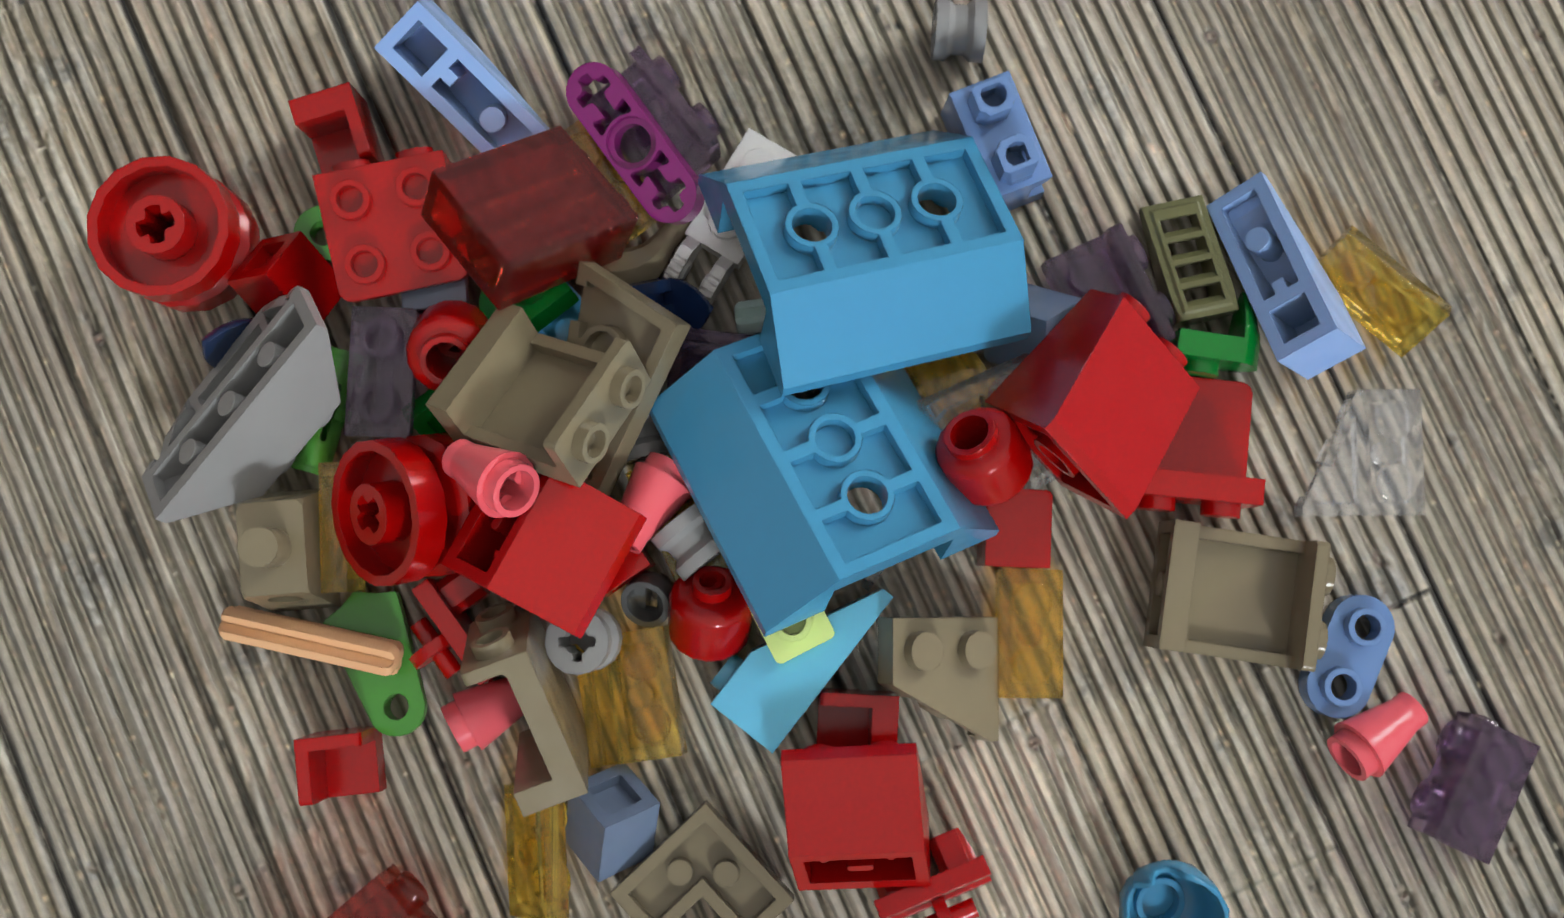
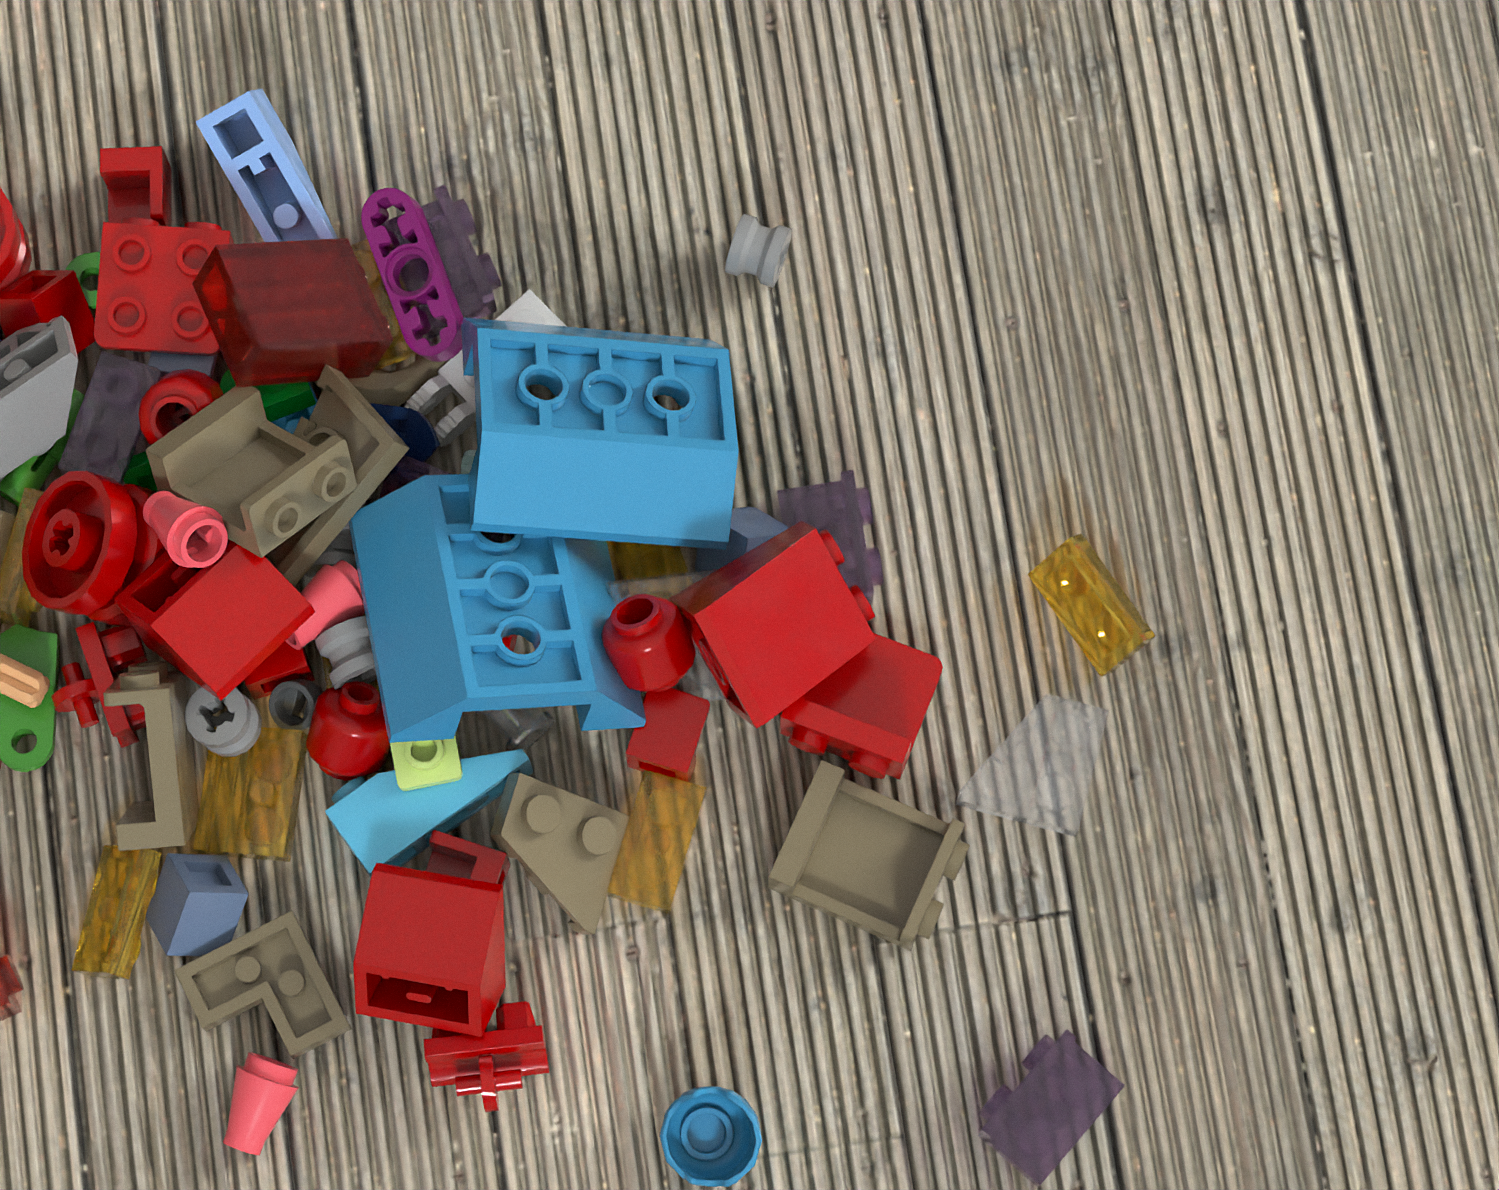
camera: 15 degrees right, 10 degrees down
(481, 713) = (108, 768): coral cone -> none
(1004, 135) = (760, 368): medium blue hips -> none
(1216, 277) = (917, 577): olive slope -> none
(1217, 352) = (909, 618): green plate -> none
(1284, 280) = (1000, 572): light blue slope -> none
(1348, 655) = (964, 948): medium blue plate -> none
(1374, 738) = (964, 1030): coral cone -> none

